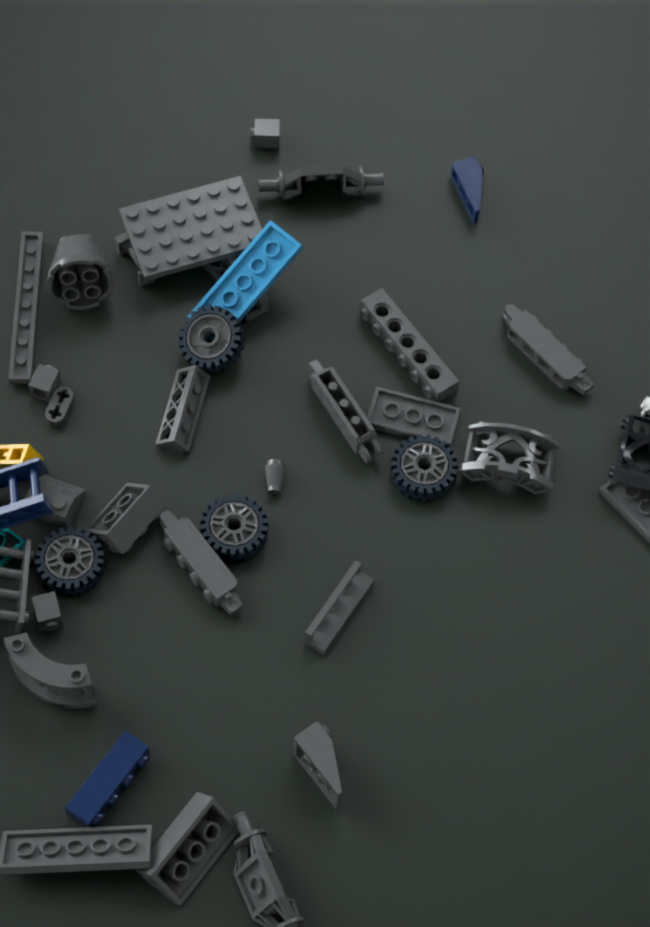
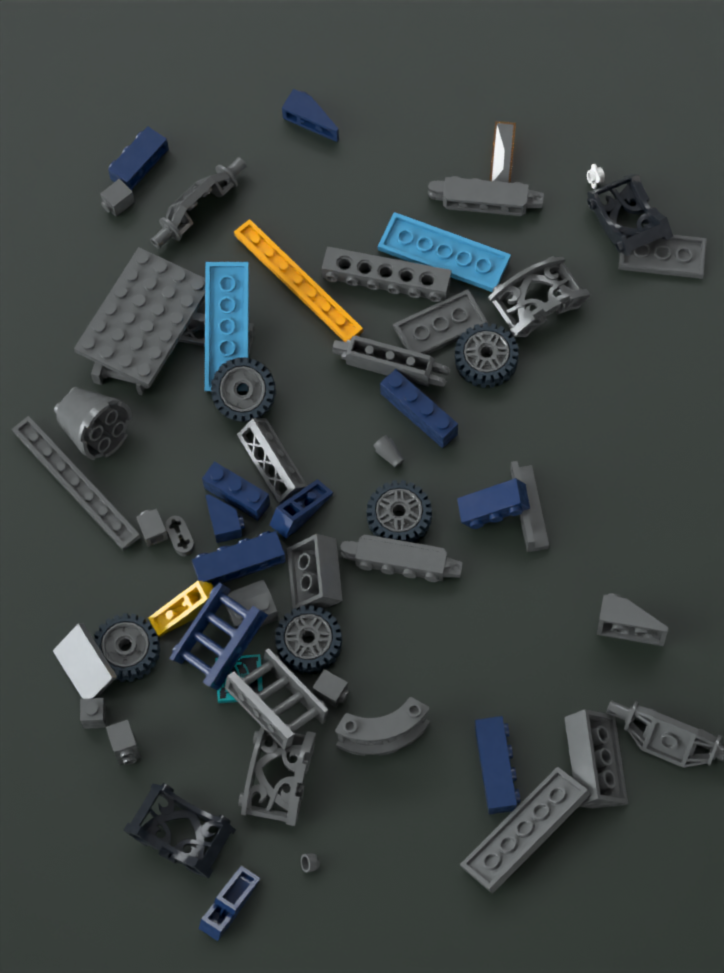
camera: 35 degrees left, 5 degrees up
(81, 459) = (240, 559): none -> dark blue brick
(100, 421) = (224, 519): none -> dark blue slope
(131, 408) = (236, 491): none -> dark blue brick
(164, 460) = (299, 508): none -> dark blue slope
(309, 580) = (493, 503): none -> dark blue brick
(310, 118) = (138, 157): none -> dark blue brick
(329, 463) = (419, 408): none -> dark blue brick
(337, 298) = (298, 281): none -> light orange plate
(472, 365) = (441, 249): none -> dark azure plate
(593, 328) = (503, 151): none -> slope

